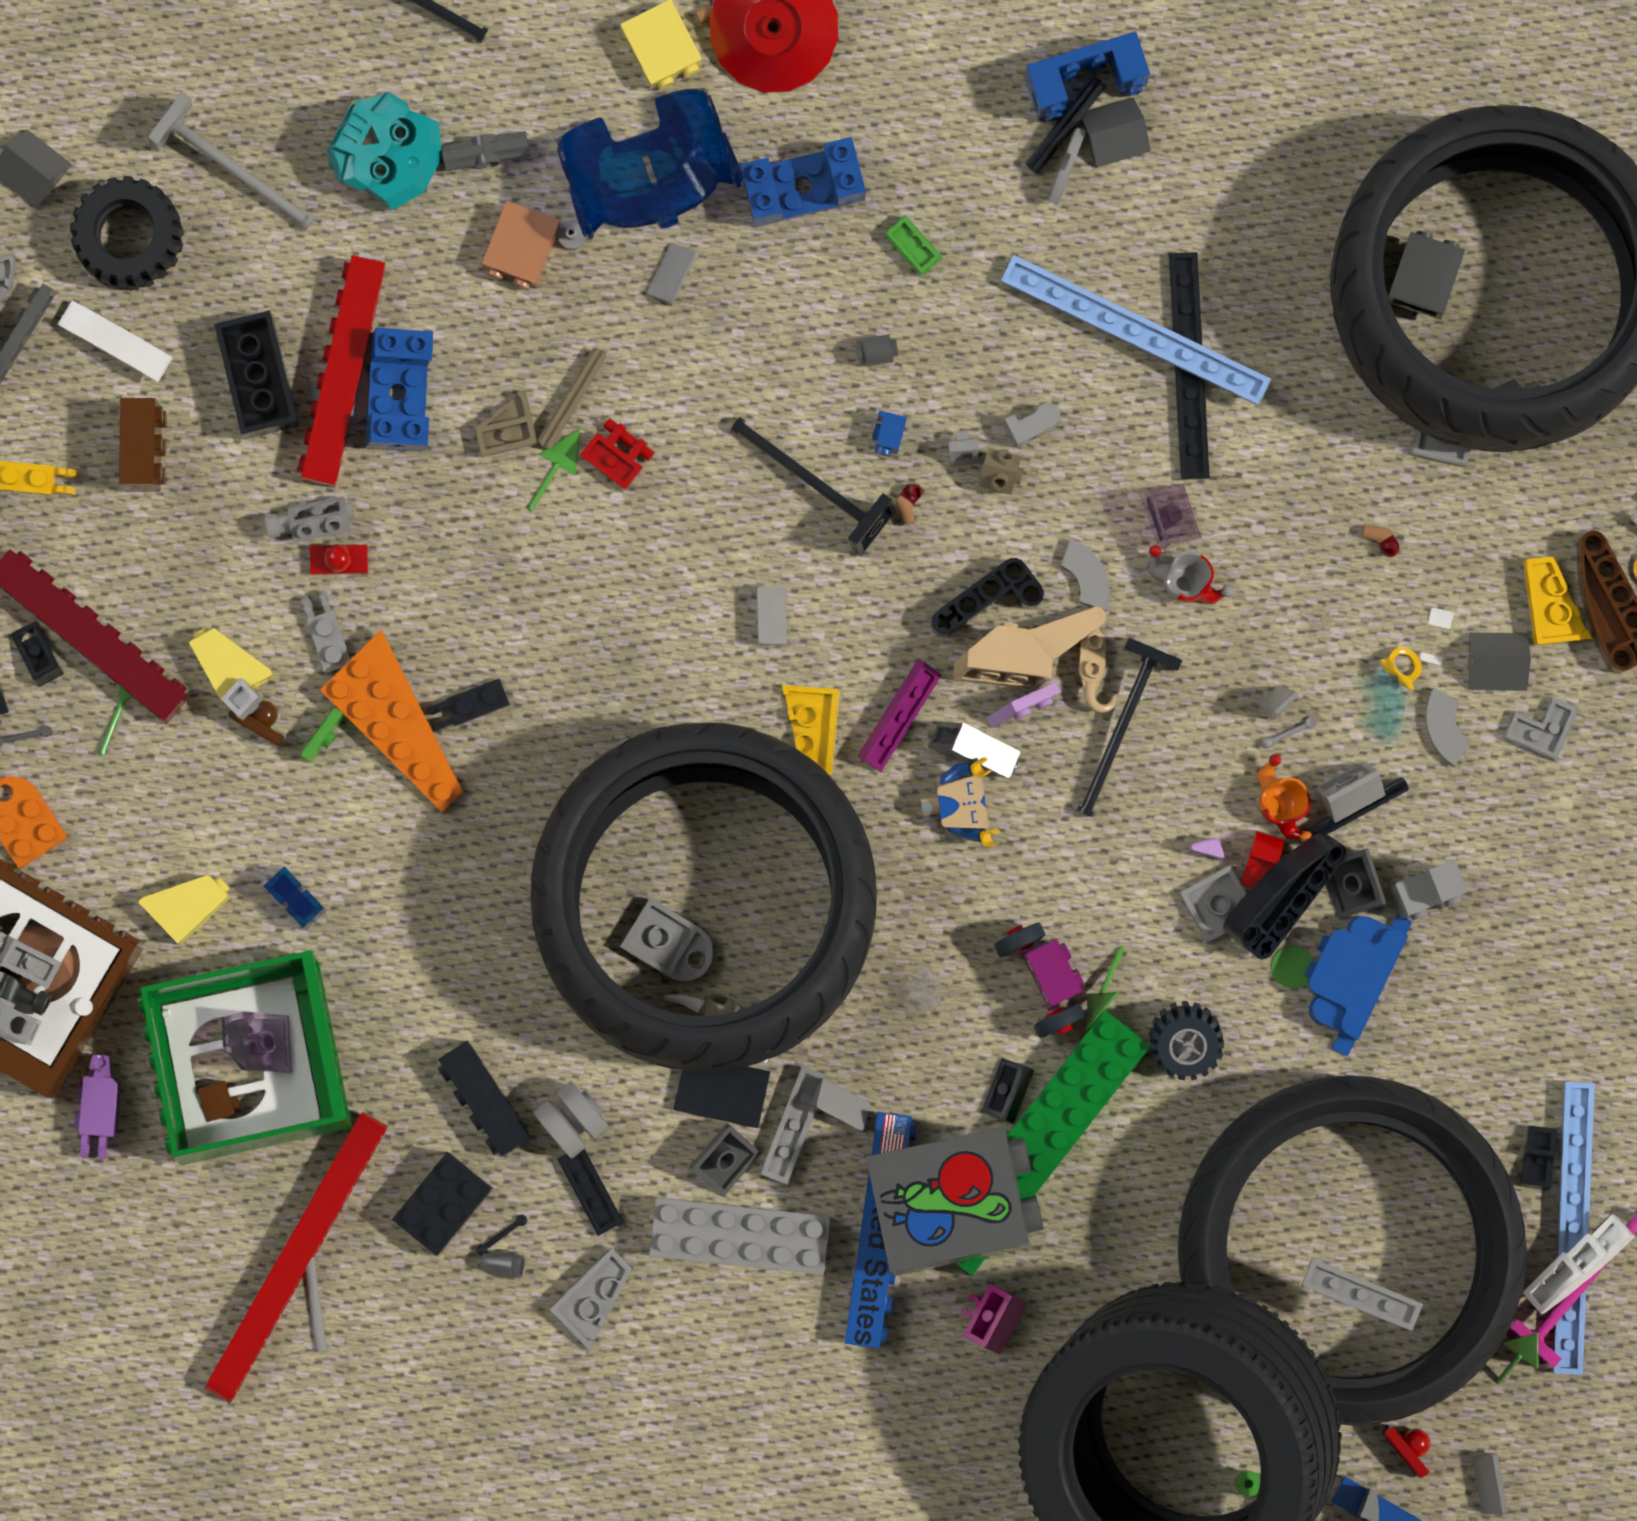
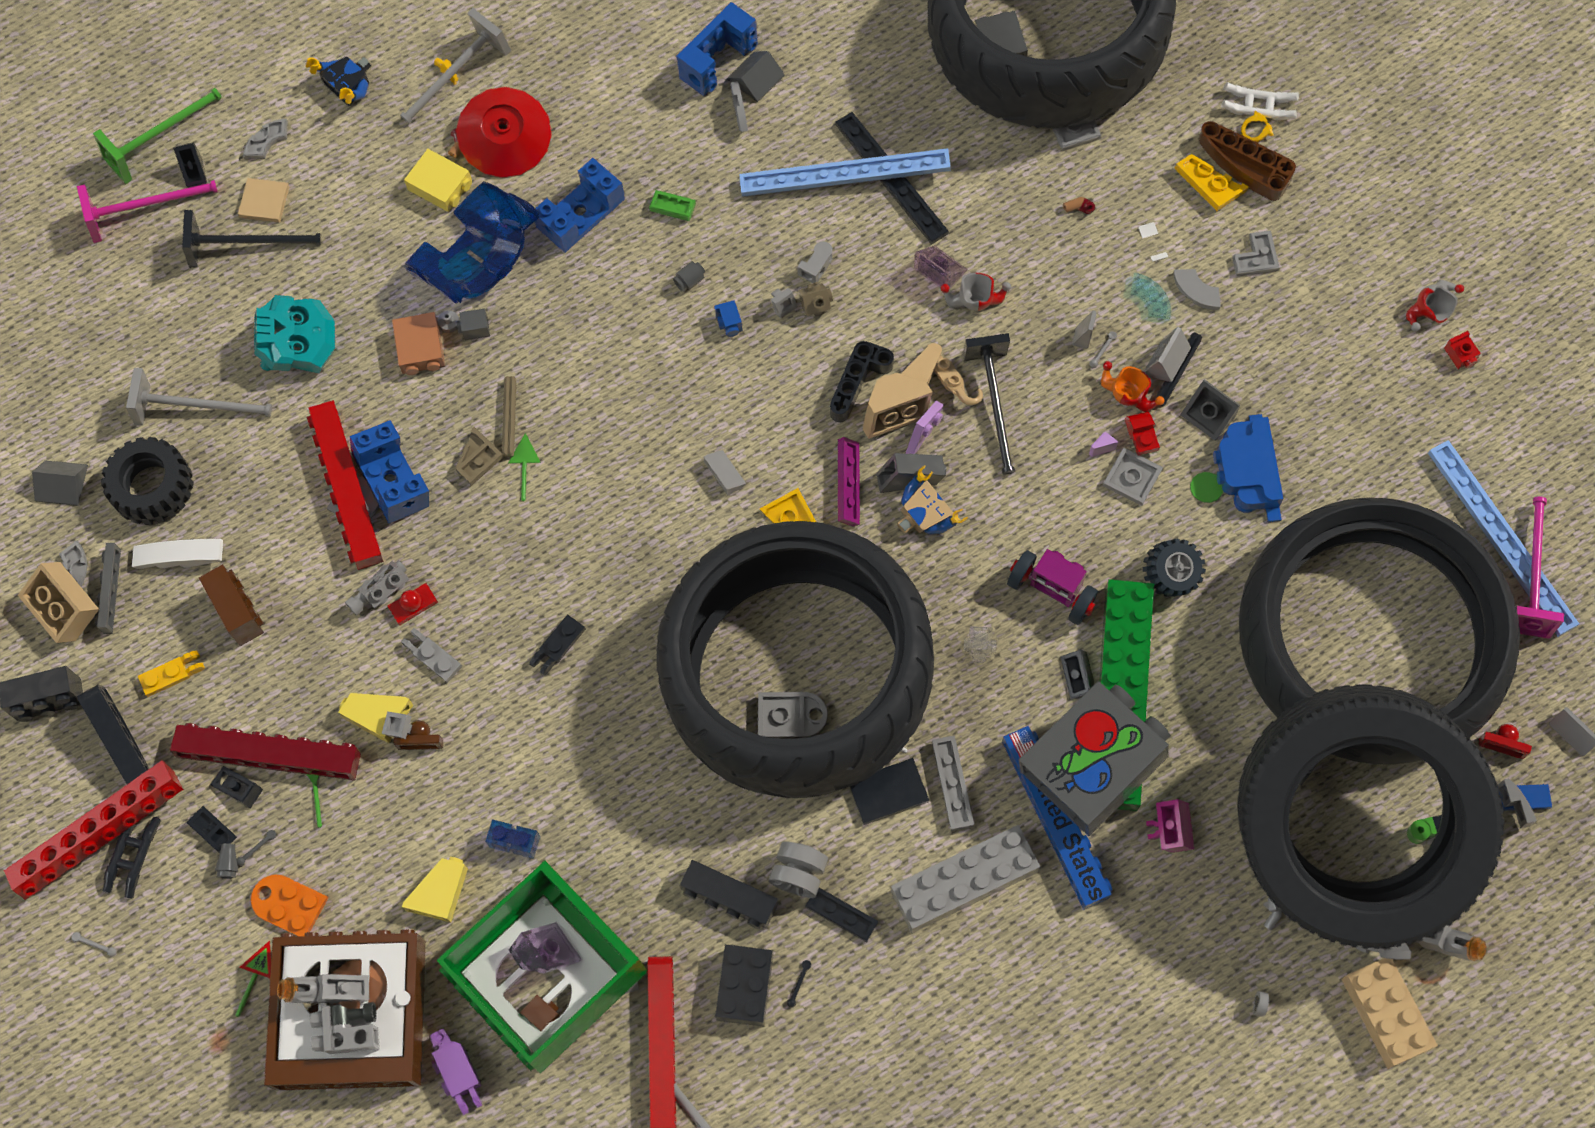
camera: 25 degrees left, 15 degrees down
(257, 375) = (287, 518): black brick -> none
(323, 736) = (469, 720): bright green plate -> none
(384, 708) = (502, 679): orange wing -> none
(485, 150) = (361, 302): dark grey piece -> none
(504, 1264) = (814, 1001): dark grey cone -> none
(591, 1297) = (889, 986): light grey wing -> none
(596, 259) = (473, 324): none -> dark grey brick
(612, 461) = (560, 438): red plate -> none
(672, 274) = (528, 307): light grey slope -> none
(725, 1159) = (920, 834): dark grey slope -> none
(840, 1104) = (975, 750): light grey slope -> none
(869, 523) = (752, 374): black tile -> none
(905, 502) = (766, 353): arm -> none
(1065, 125) = (722, 86): black axle -> none
(1088, 573) = (911, 329): light grey tile -> none
(1100, 1001) = (1100, 580): bright green piece -> none
(1283, 895) = (1171, 442): black beam -> none
(1362, 1294) = (1411, 643): light grey plate -> none
(1390, 668) = (1140, 271): yellow piece -> none
(1434, 887) = (1261, 383): light grey brick -> none
(1499, 661) = (1203, 233): dark grey slope -> none
(1526, 1348) = (1534, 622): bright green piece -> none
(1538, 1157) = (1445, 503): black slope -> none
(1578, 1265) = (1526, 551): white slope -> none

